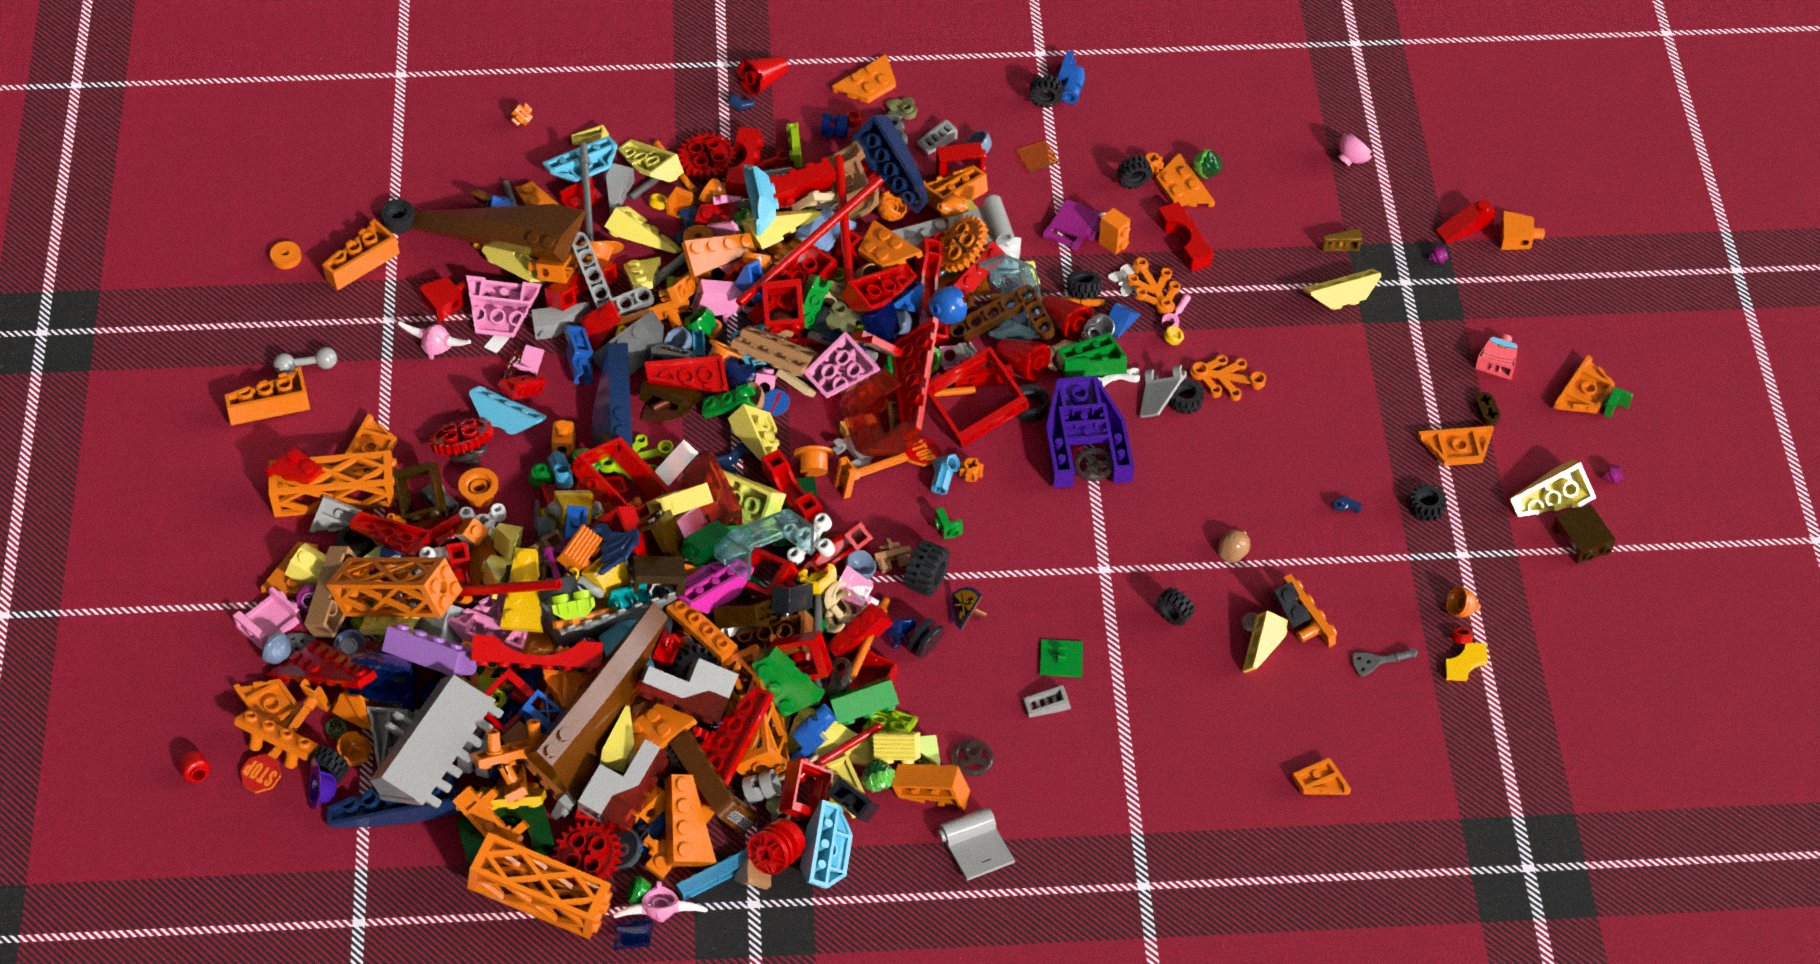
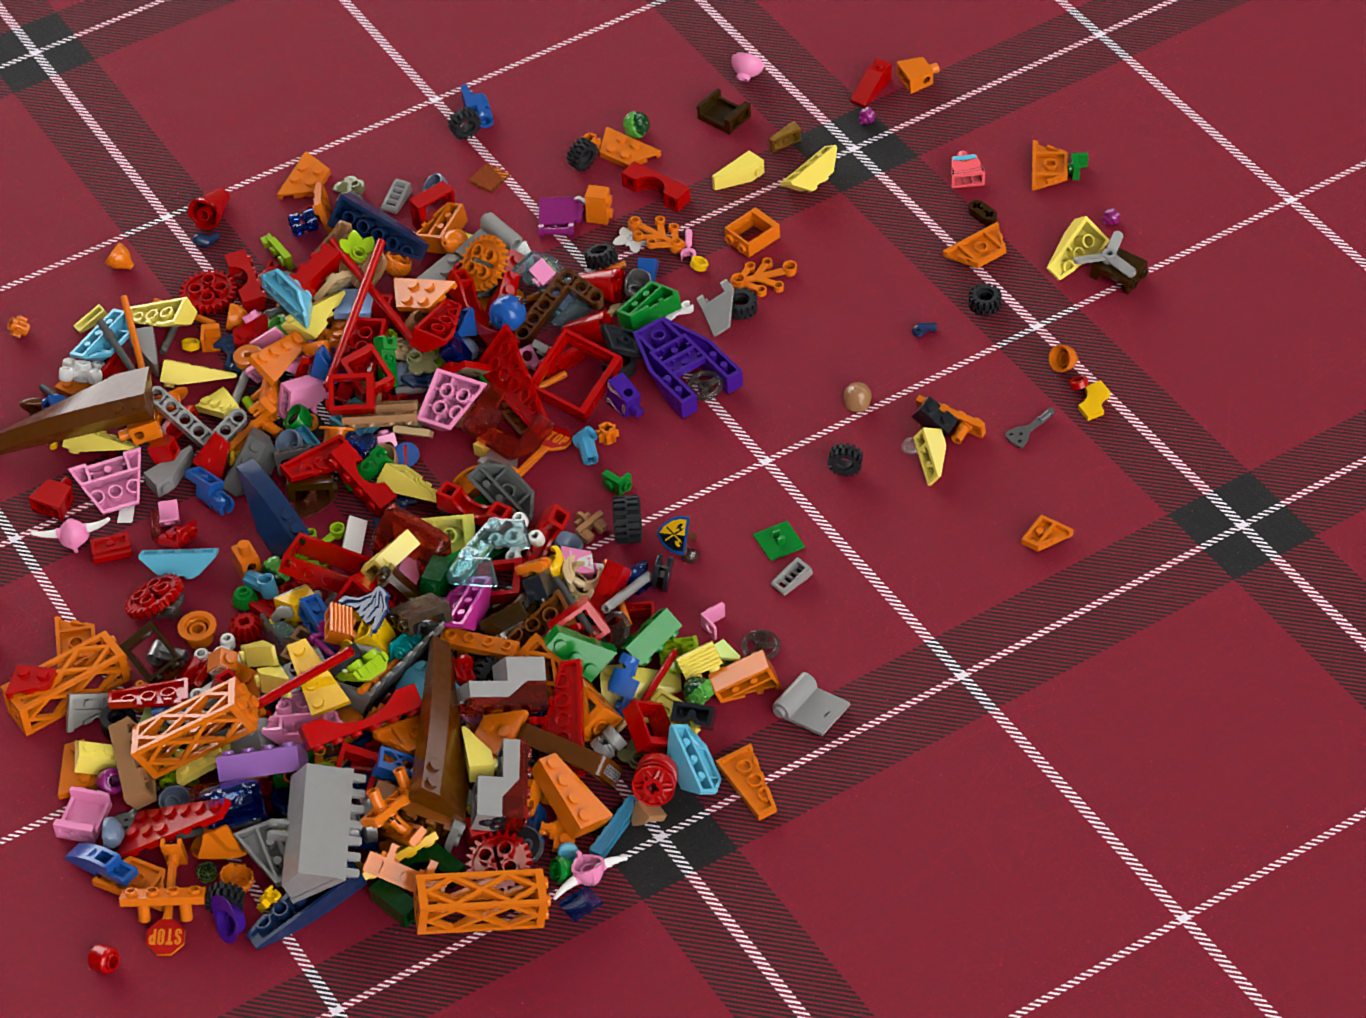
camera: 25 degrees left, 5 degrees down
(250, 675) = (102, 861): none -> blue slope
(364, 783) = (270, 896): none -> yellow plate
(460, 369) = (111, 548): none -> red plate
(521, 505) = (245, 627): none -> red gear
(543, 184) = (81, 371): none -> white gear
(597, 211) = (132, 331): none -> orange bar
(651, 87) = (120, 258): none -> orange helmet
(654, 874) = (567, 850): none -> medium azure tile
(719, 432) = (375, 495): none -> red arch
(770, 327) = (368, 408): none -> red window
(793, 577) = (537, 565): none -> orange plate
(831, 484) = (504, 485): none -> dark grey wedge
(857, 171) = (357, 244): none -> lime plate
(862, 112) = (322, 205): none -> orange wing
(868, 888) = (745, 776): none -> orange wing
(873, 643) = (626, 592): none -> light grey piece
(944, 704) = (710, 616): none -> bright pink bracket
(969, 632) = (691, 557): none -> clear smoke piece
(1008, 279) = (542, 274): none -> bright pink brick
(1009, 440) = (623, 396): none -> dark purple torso
(1039, 382) = (620, 341): none -> black plate
(1244, 313) = (755, 218): none -> orange window
(1275, 257) = (738, 172): none -> light yellow slope
(1301, 187) = (722, 112): none -> dark brown panel
(1578, 515) = (1109, 256): none -> light grey piece

